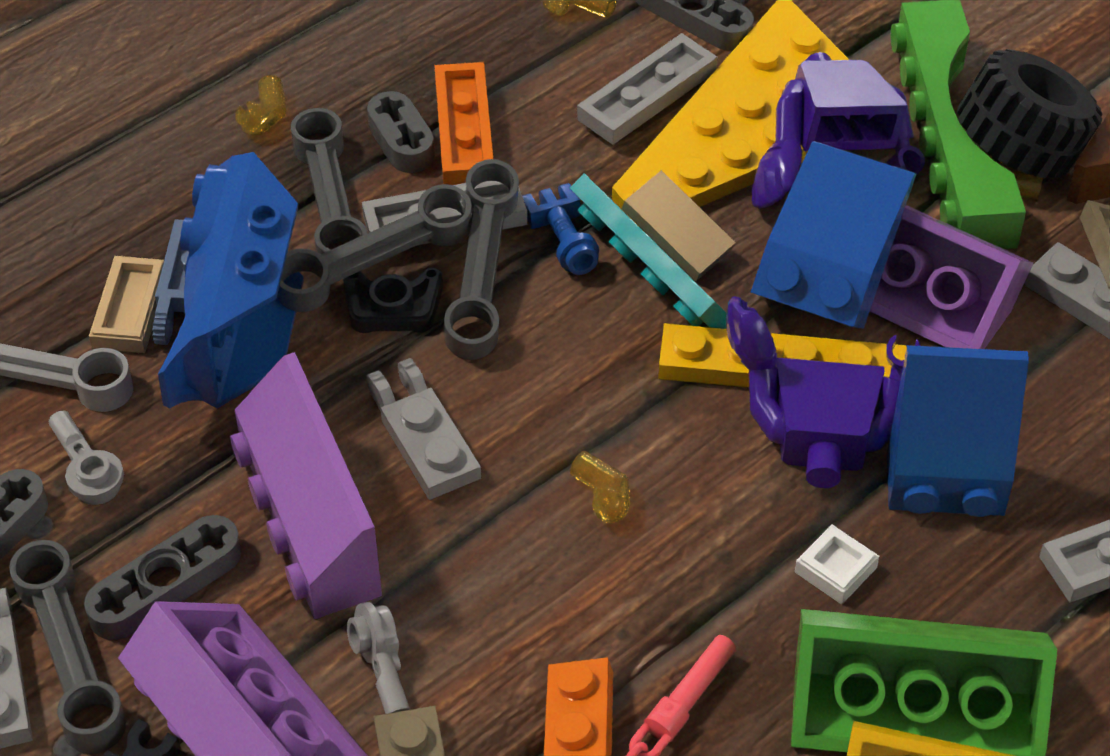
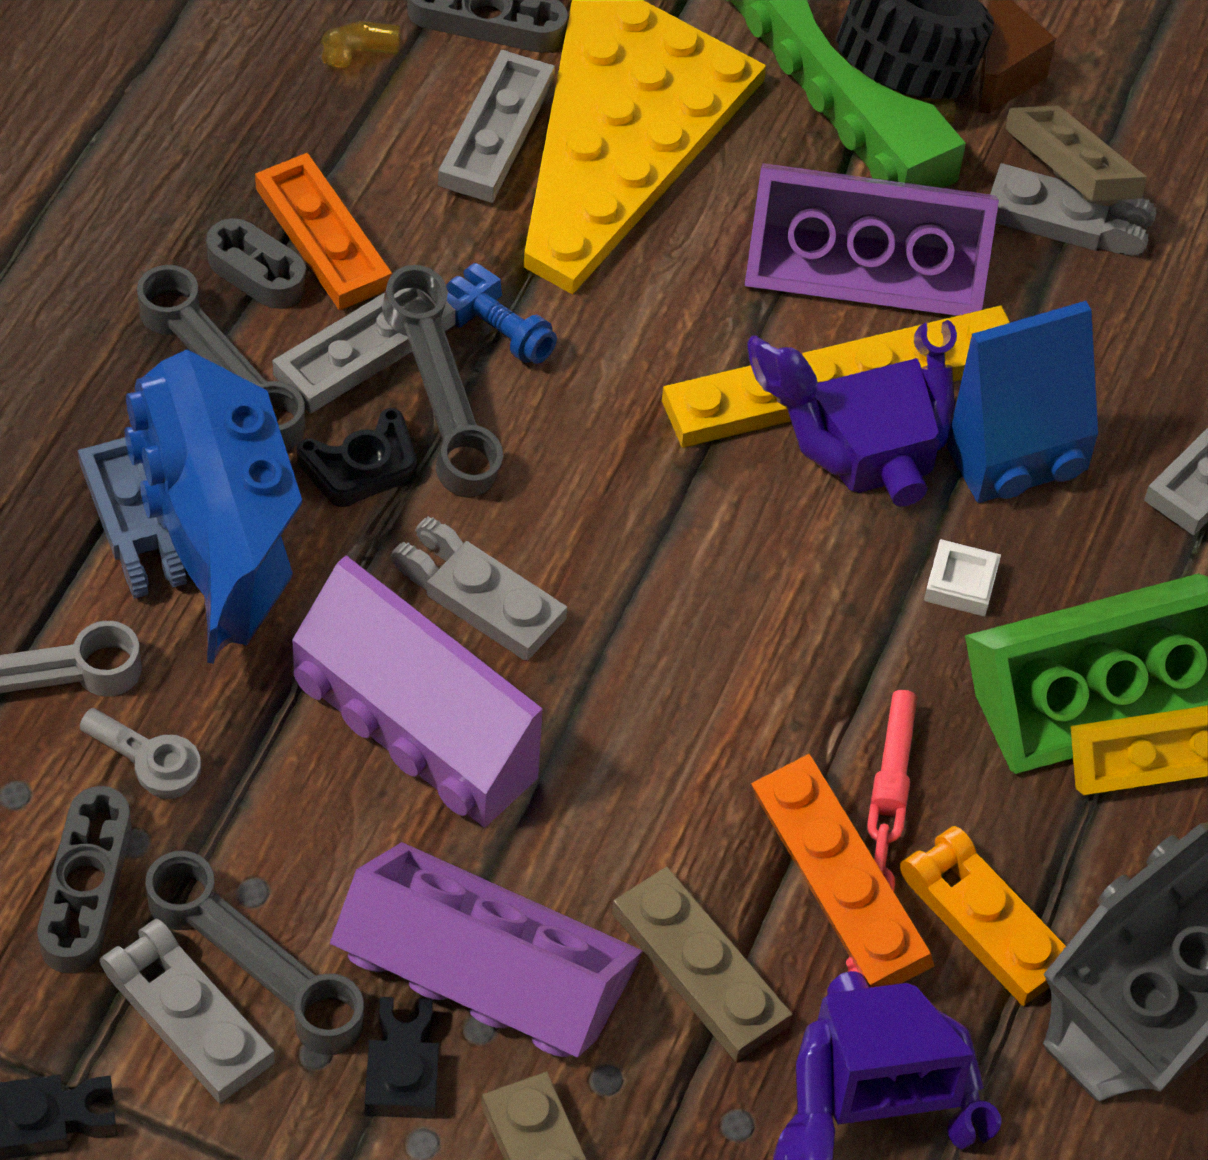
camera: 30 degrees left, 5 degrees up
(127, 305) = (78, 564): tan tile -> none
(169, 553) = (308, 871): dark grey beam -> none
(268, 112) = (93, 285): clear yellow arm -> none
(375, 637) = (568, 822): light grey plate -> none
(376, 247) = (346, 384): dark grey piece -> none
(609, 486) = (703, 580): clear yellow arm -> none
(661, 270) = (630, 327): teal plate -> none
(678, 225) = (621, 273): tan tile -> none
(834, 235) = (800, 233): blue slope -> none
(837, 106) = (720, 93): dark purple torso -> none

